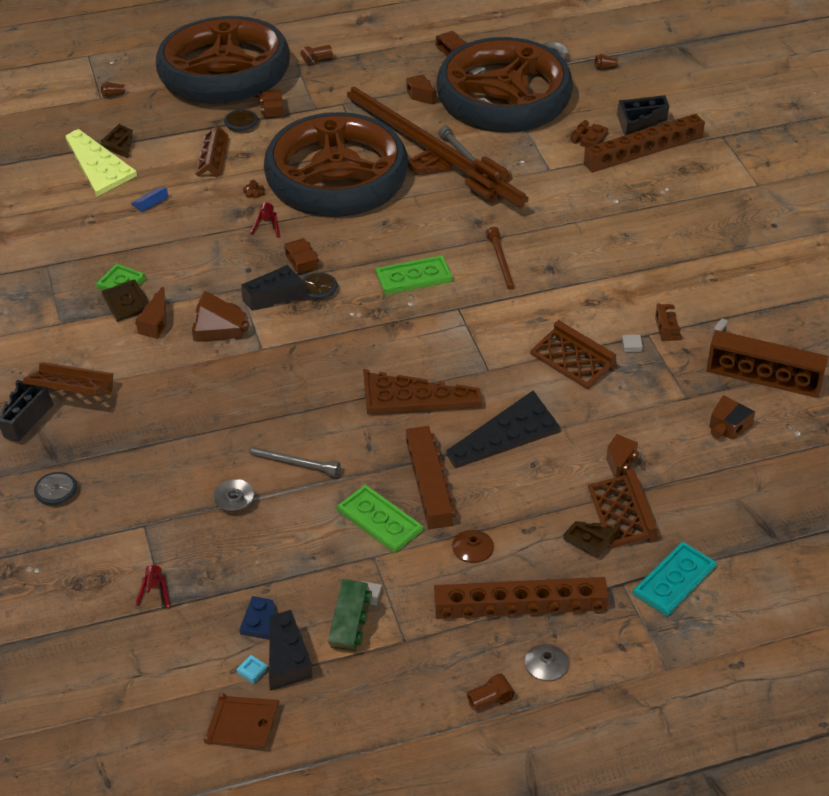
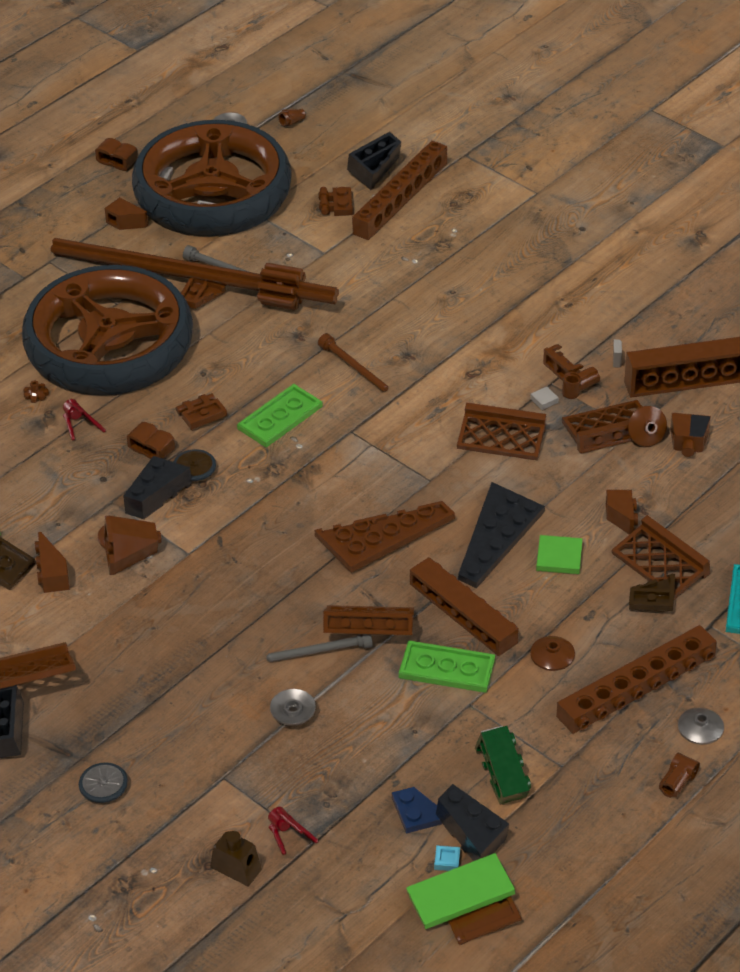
camera: 30 degrees left, 0 degrees up
(87, 581) = (236, 858): none -> dark brown torso
(235, 699) = (460, 891): none -> bright green tile
(343, 453) = (368, 620): none -> reddish brown fence
(357, 248) = (201, 410): none -> reddish brown plate
(542, 470) = (559, 554): none -> bright green tile
(664, 340) = (575, 382): none -> reddish brown piece
(671, 394) = (602, 433): none -> reddish brown fence
(697, 388) = (639, 423): none -> reddish brown dish

